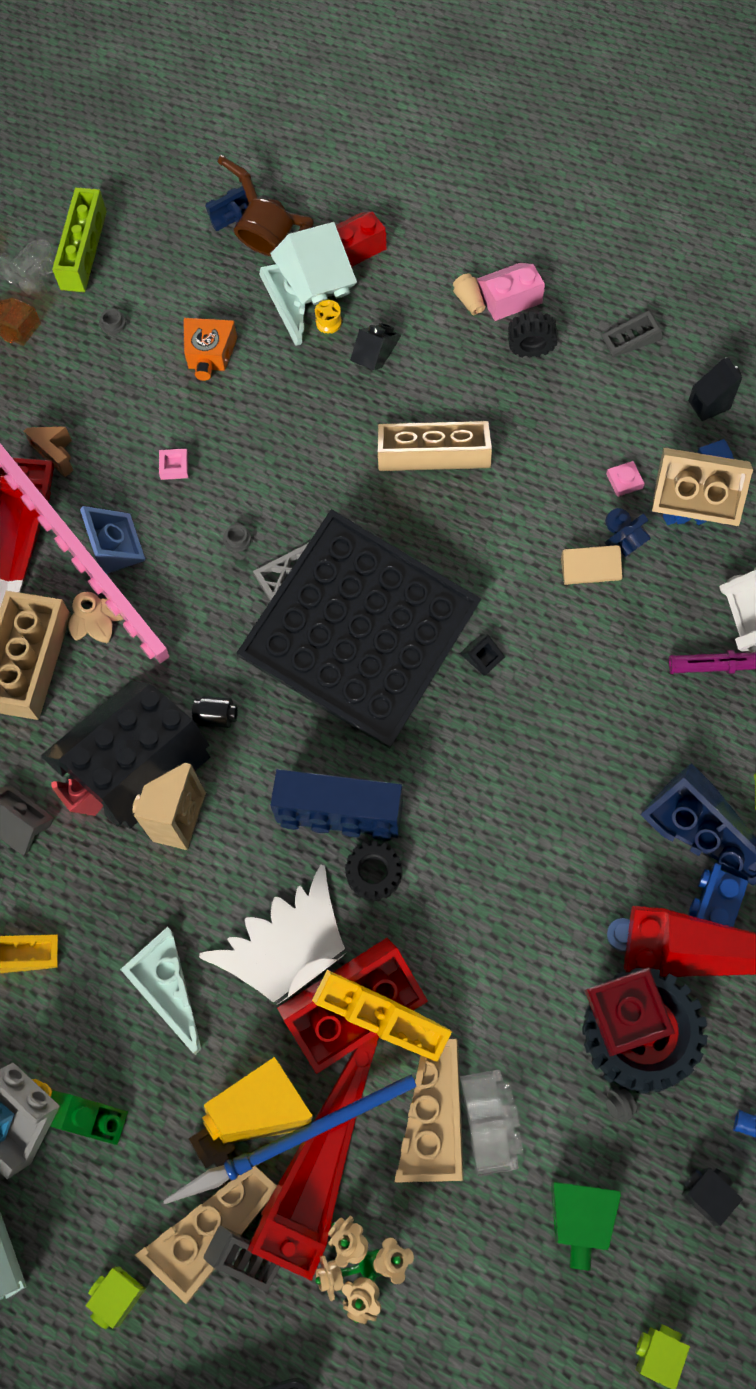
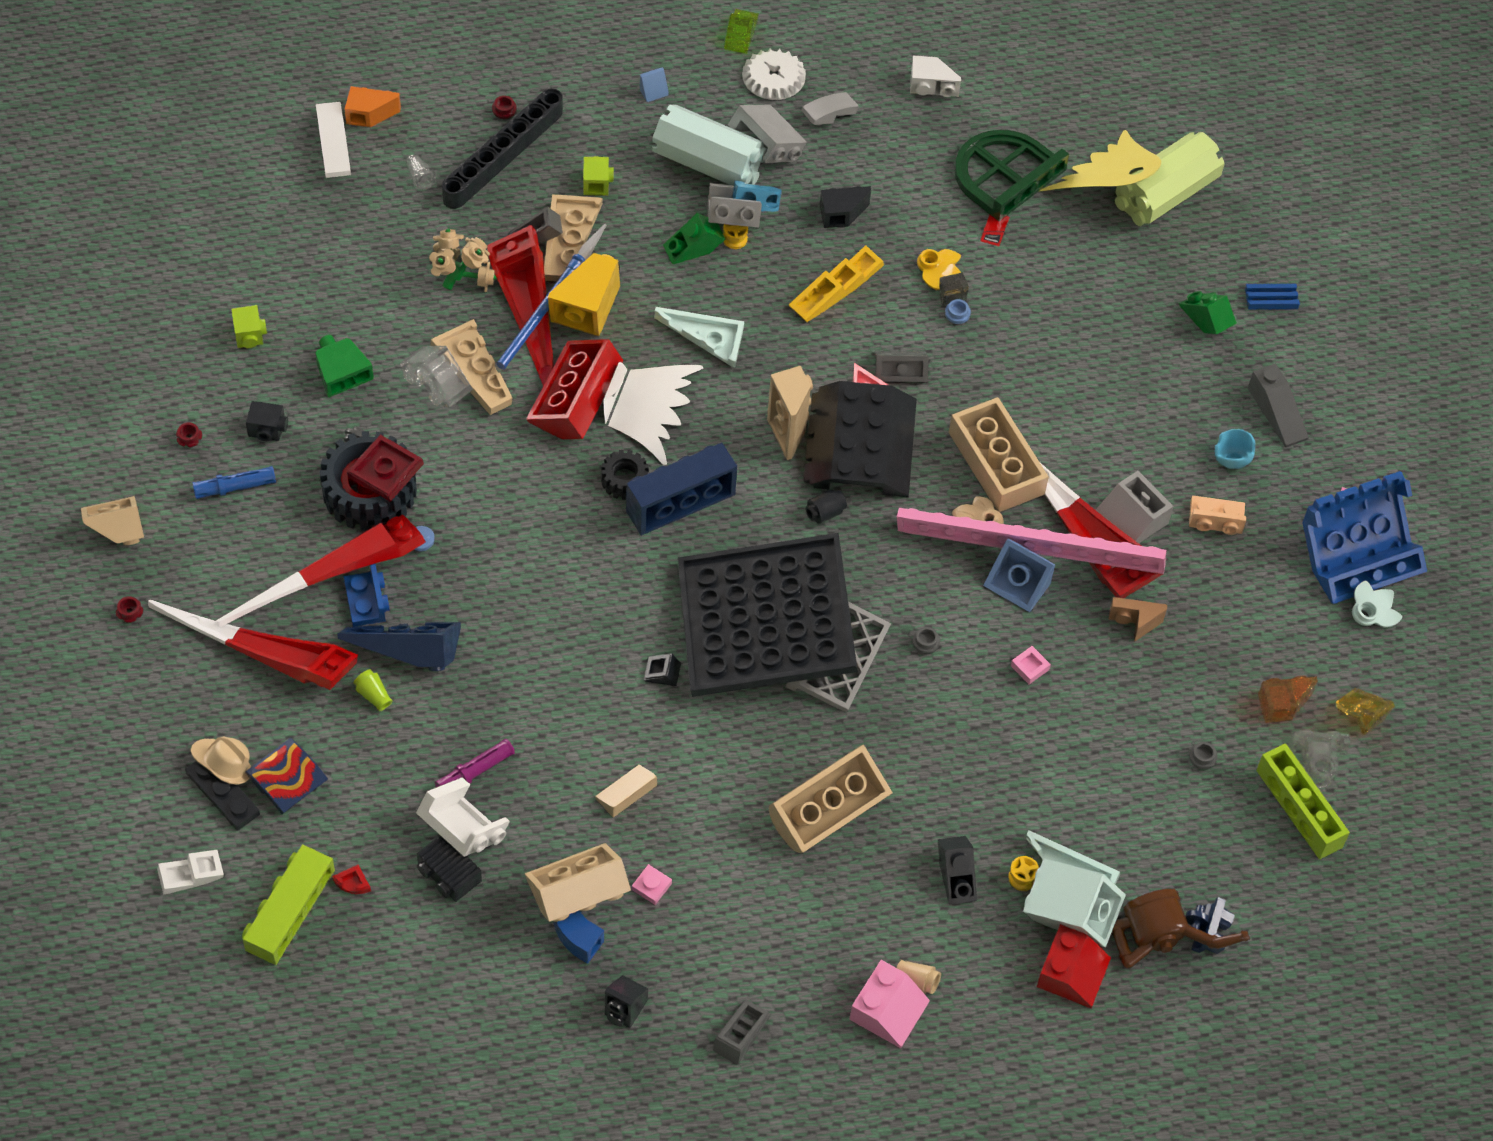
camera: 135 degrees right, 10 degrees down
(208, 345) = (1100, 778): orange torso -> none
(382, 1016) = (540, 384): yellow slope -> none
(532, 334) = (826, 954): black tyre -> none
(627, 533) = (614, 818): dark blue hips -> none

